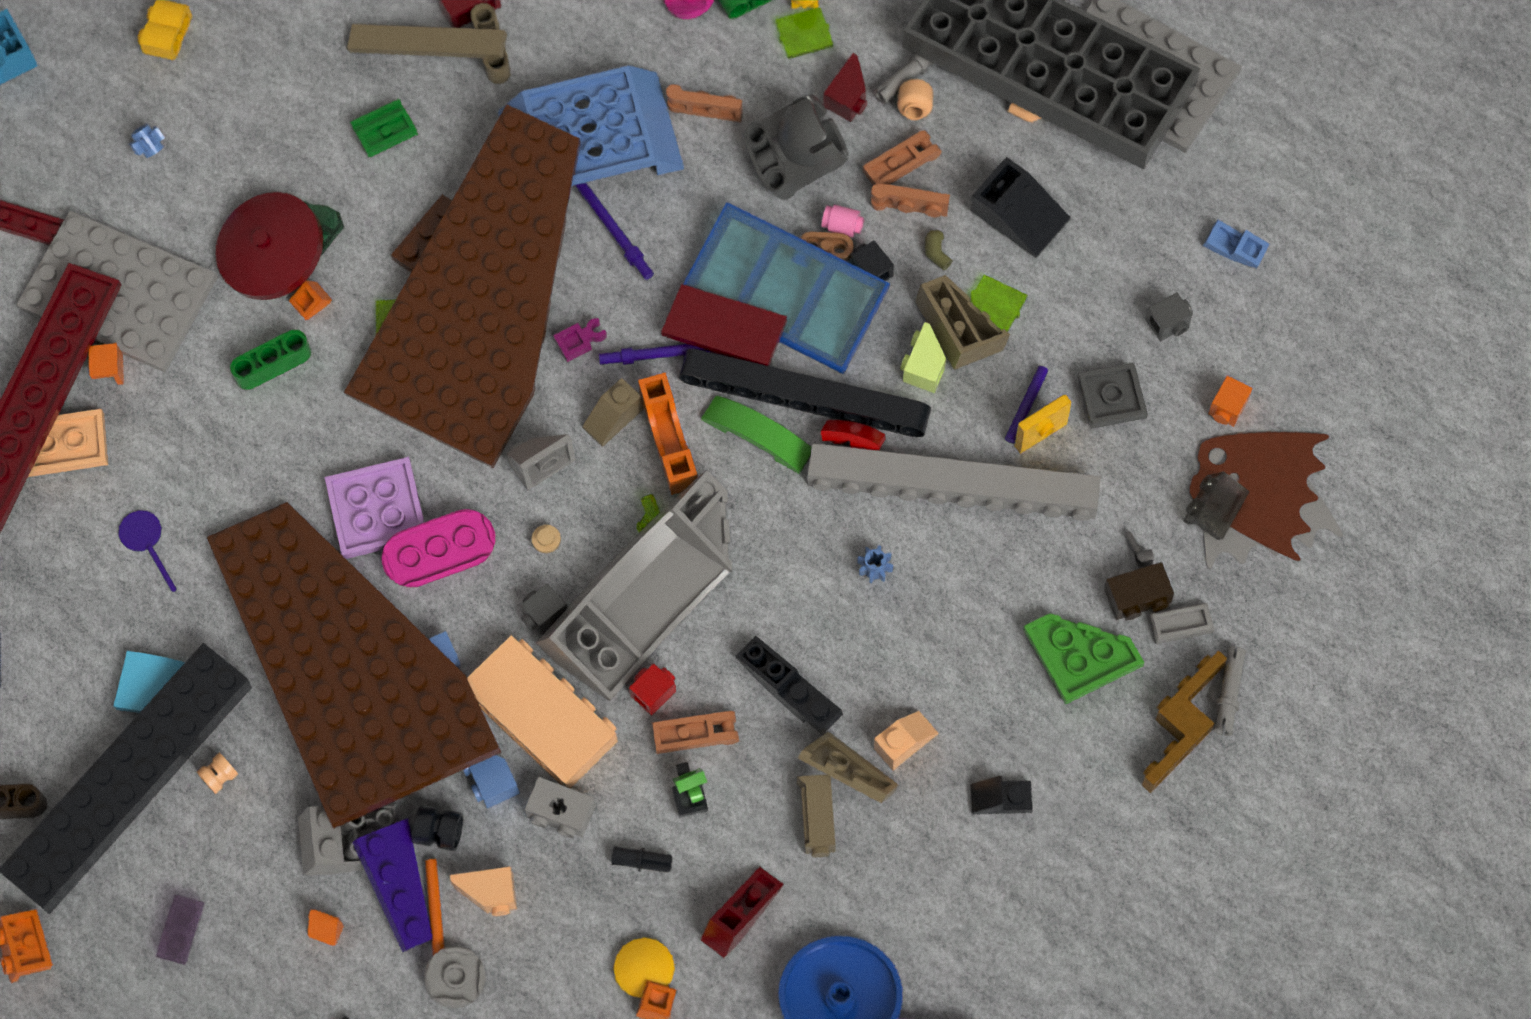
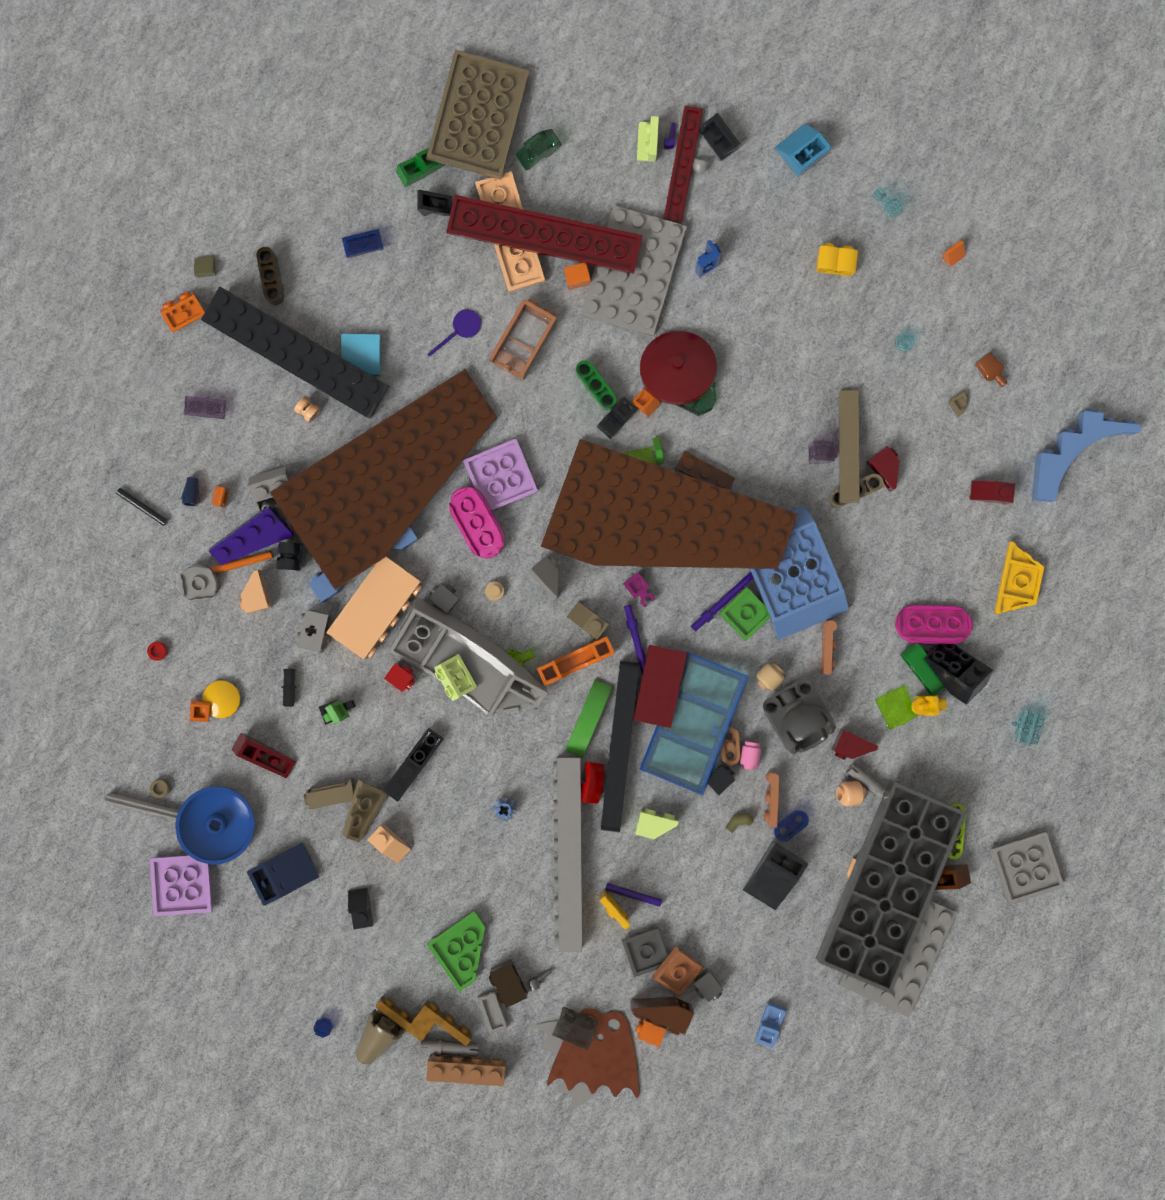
camera: 80 degrees right, 20 degrees up
(121, 182) = (708, 260): none -> blue bracket
(147, 140) = (747, 267): medium blue gear -> none
(181, 449) = (523, 338): none -> door
(311, 970) = (190, 494): none -> dark blue cone
(324, 339) = (617, 417): none -> black slope
(382, 289) = (658, 450): none -> bright green tile
(384, 128) = (780, 428): green plate -> none
(428, 79) = (822, 452): none -> clear purple slope
(639, 203) = (745, 614): none -> bright green plate
(666, 608) = (455, 677): none -> yellowish green bracket
(694, 732) = (375, 708): nougat plate -> none
(733, 180) = (770, 676): none -> tan head
(901, 159) = (803, 788): nougat plate -> none
(932, 904) = (282, 874): none -> dark blue slope
(953, 183) = (791, 826): none -> clear blue plate
(958, 324) = (682, 843): dark tan wedge -> none
(998, 301) = (704, 865): clear neon green piece -> none
(1145, 353) = (677, 971): none -> nougat plate
(1180, 876) = (323, 1027): none -> clear blue tile
(1203, 791) = (377, 1037): none -> dark tan cone
(1205, 365) = (664, 1011): none -> reddish brown slope
(1265, 668) = (466, 1070): none -> medium nougat brick

